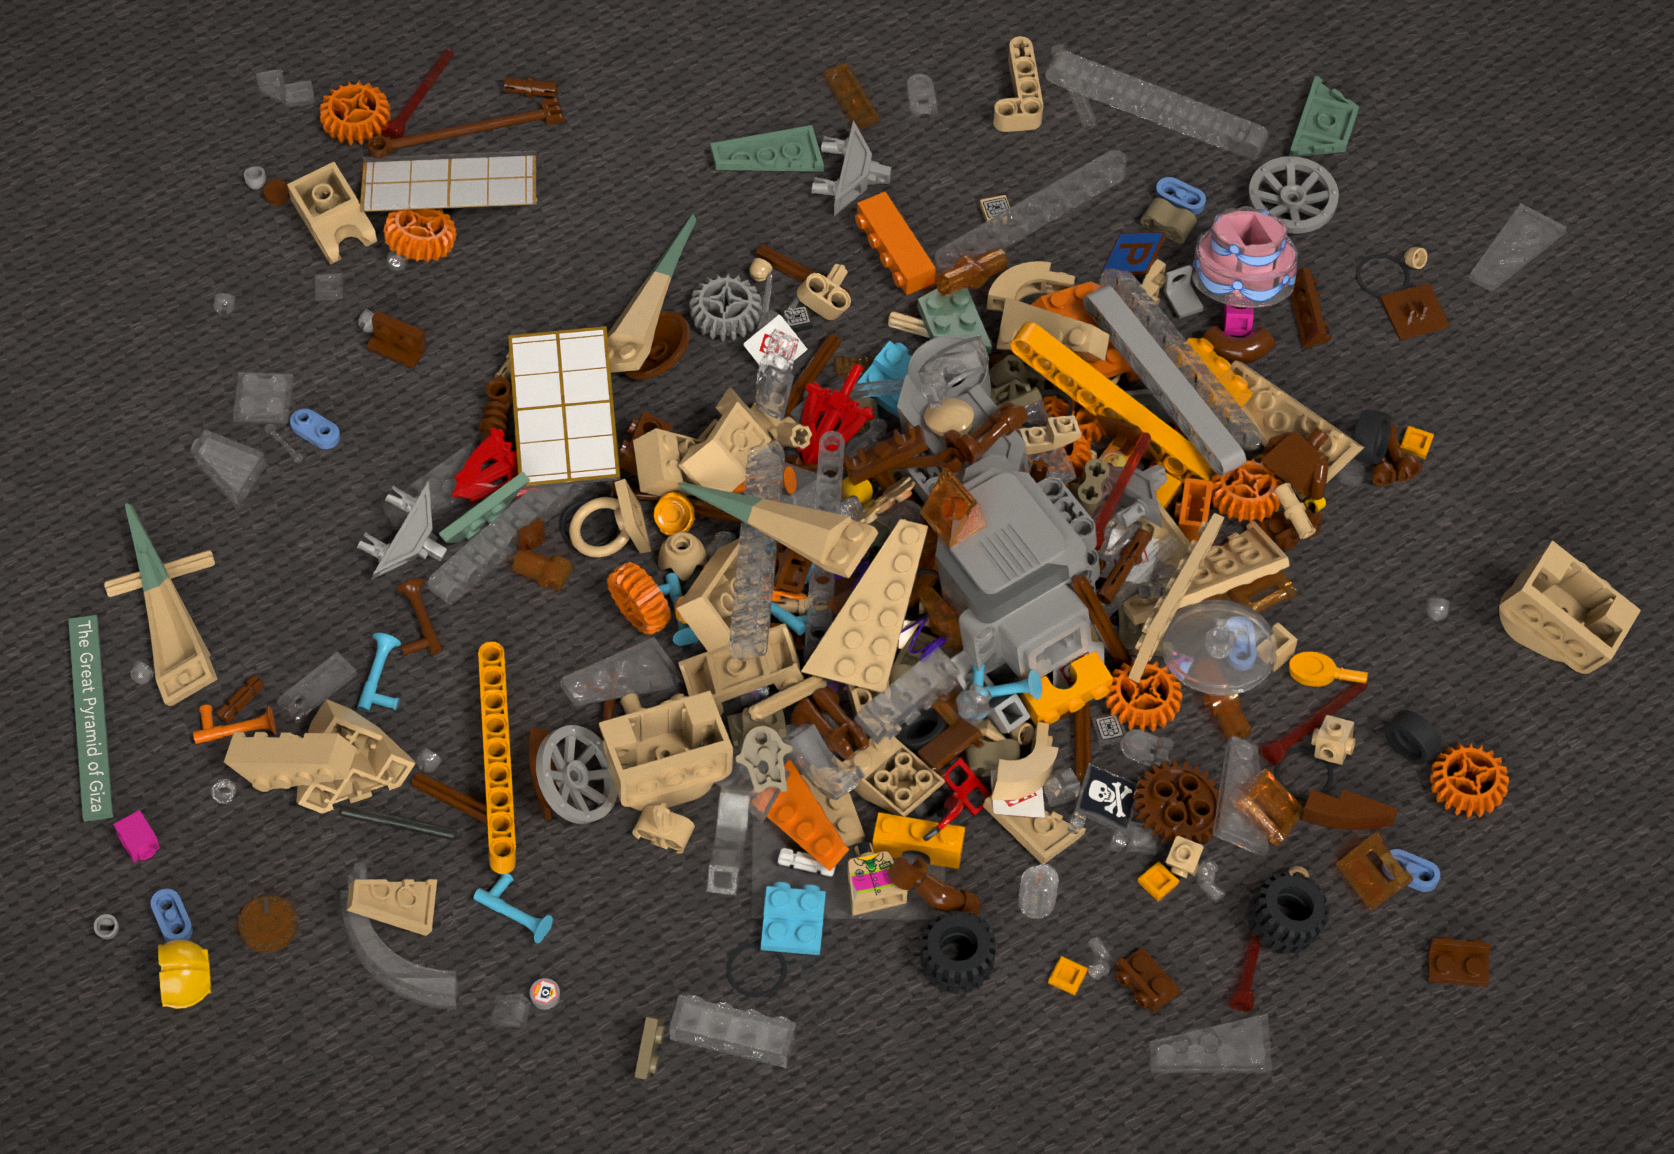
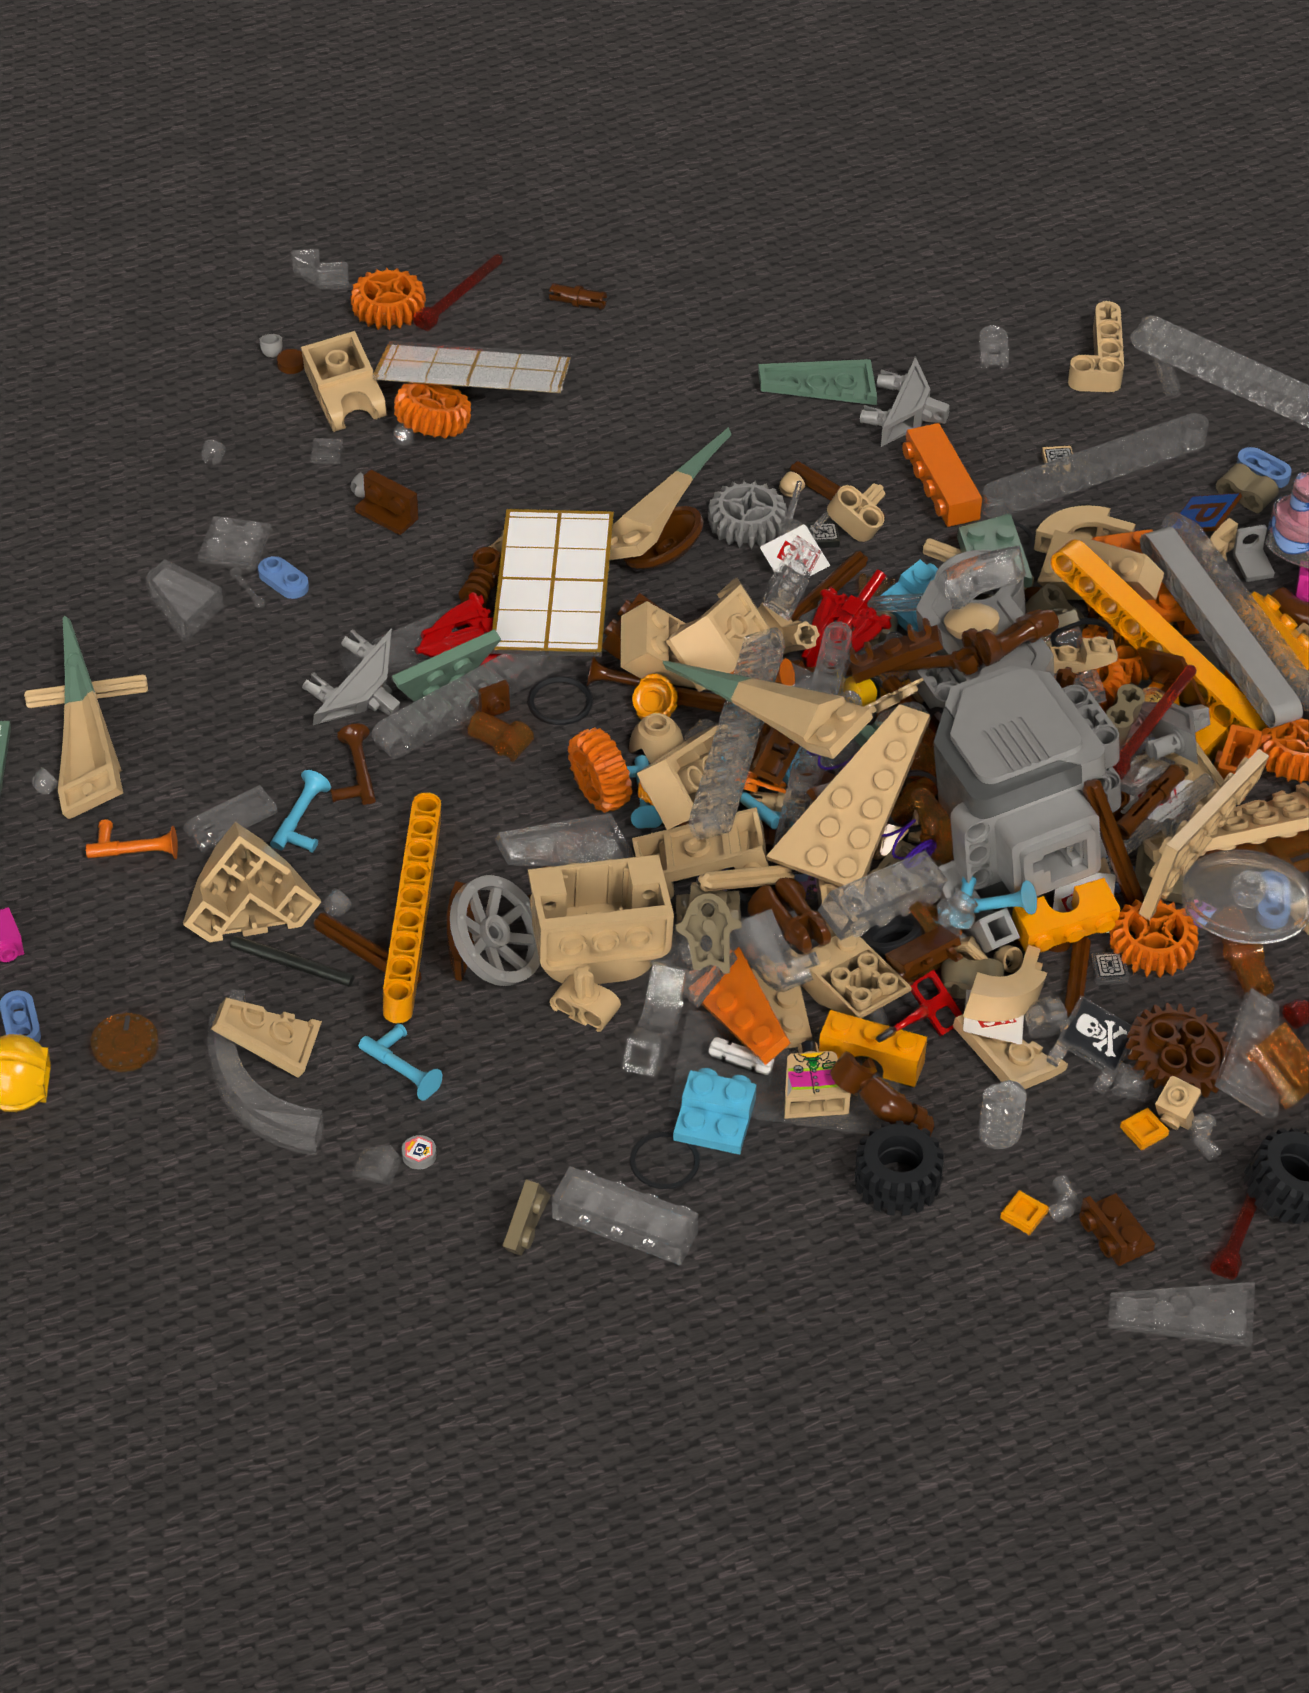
camera: 10 degrees right, 10 degrees down
(225, 796) = (108, 911): clear hinge -> none
(240, 699) = (145, 819): reddish brown axle -> none
(290, 759) = (181, 873): tan wedge -> none
(549, 111) = (594, 321): reddish brown hinge -> none
(628, 517) = (603, 692): tan tile -> none
(851, 96) = (918, 340): clear orange tile -> none
(951, 502) = (959, 686): clear orange slope -> none
(971, 271) = (1021, 508): clear orange piece -> none
(1137, 746) = (1140, 986): clear plate -> none

